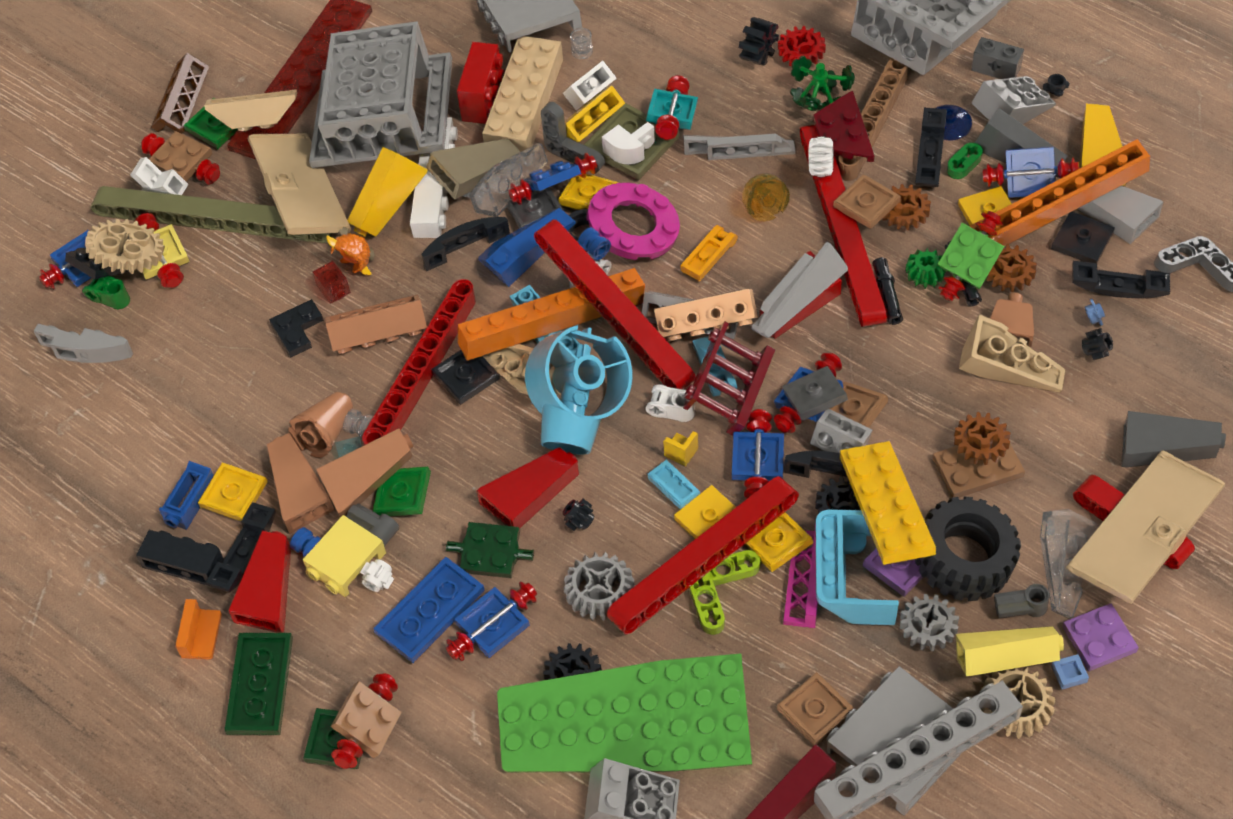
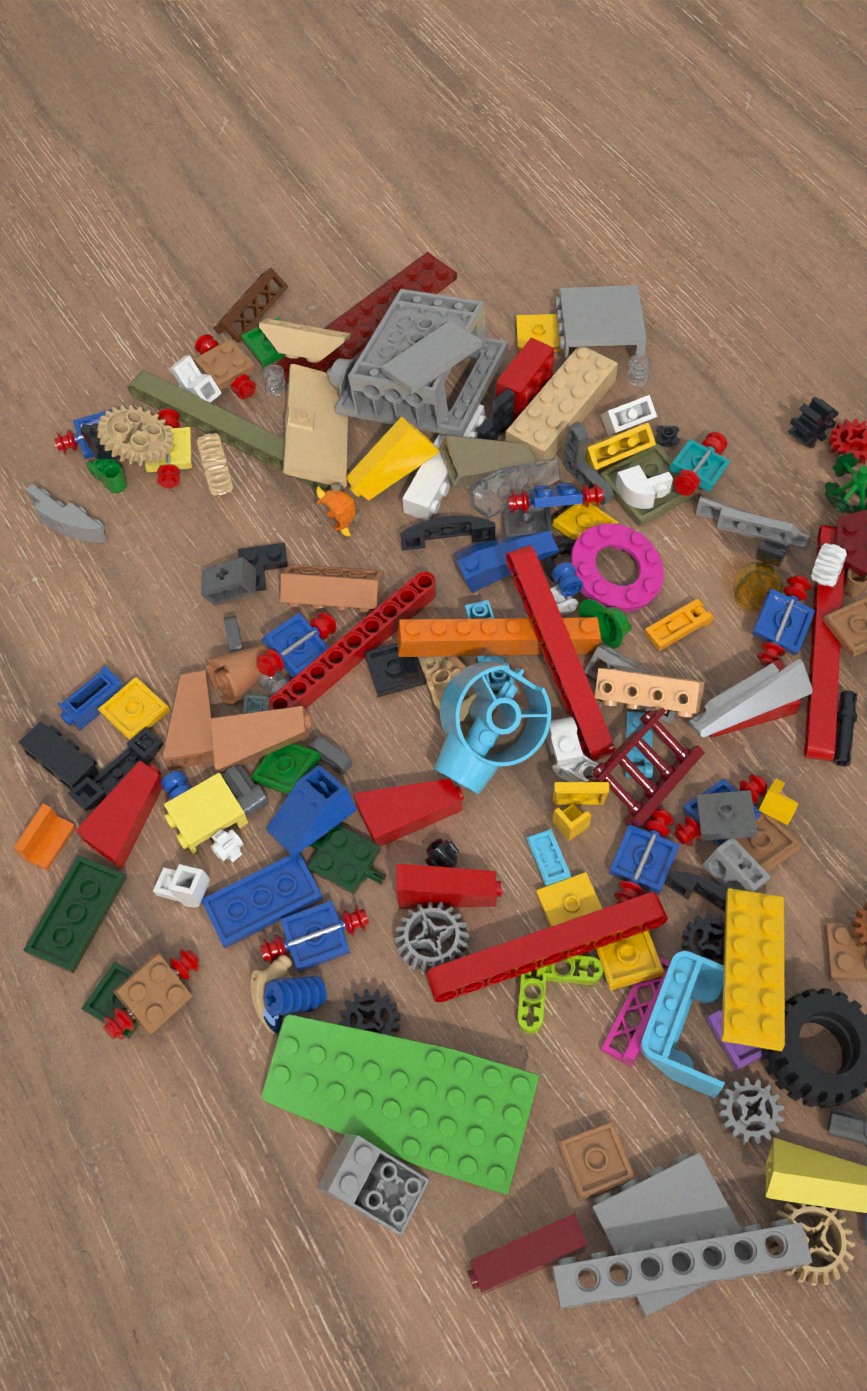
camera: 20 degrees right, 5 degrees up
(214, 249) = (214, 464): none -> tan gear
(235, 156) = (274, 380): none -> clear wheel
(275, 348) = (228, 581): none -> dark grey brick
(299, 394) = (233, 634): none -> dark grey beam
(303, 129) = (339, 373): none -> light grey piece
(331, 282) = (308, 532): clear red brick -> none
(354, 622) = (182, 885): none -> white brick
(365, 382) = (295, 644): none -> blue plate
(391, 84) = (431, 356): none -> light grey tile
(440, 467) = (330, 755): none -> dark grey beam
(443, 517) = (310, 811): none -> blue slope
(470, 31) = (540, 327): none -> yellow plate
(472, 121) = (502, 417): none -> black plate
(475, 680) = (258, 983): none -> tan arm
(497, 672) = (294, 995): none -> blue piece
(597, 534) = (447, 885): none -> red slope
(631, 93) = (667, 435): none -> black plate
(648, 267) = (611, 621): none -> green piece
(648, 382) = (564, 742): none -> white brick
(680, 419) = (580, 793): none -> yellow plate
(767, 163) = (771, 552): none -> black slope
(799, 218) = (783, 620): none -> blue plate
(855, 371) = (778, 805): none -> yellow panel

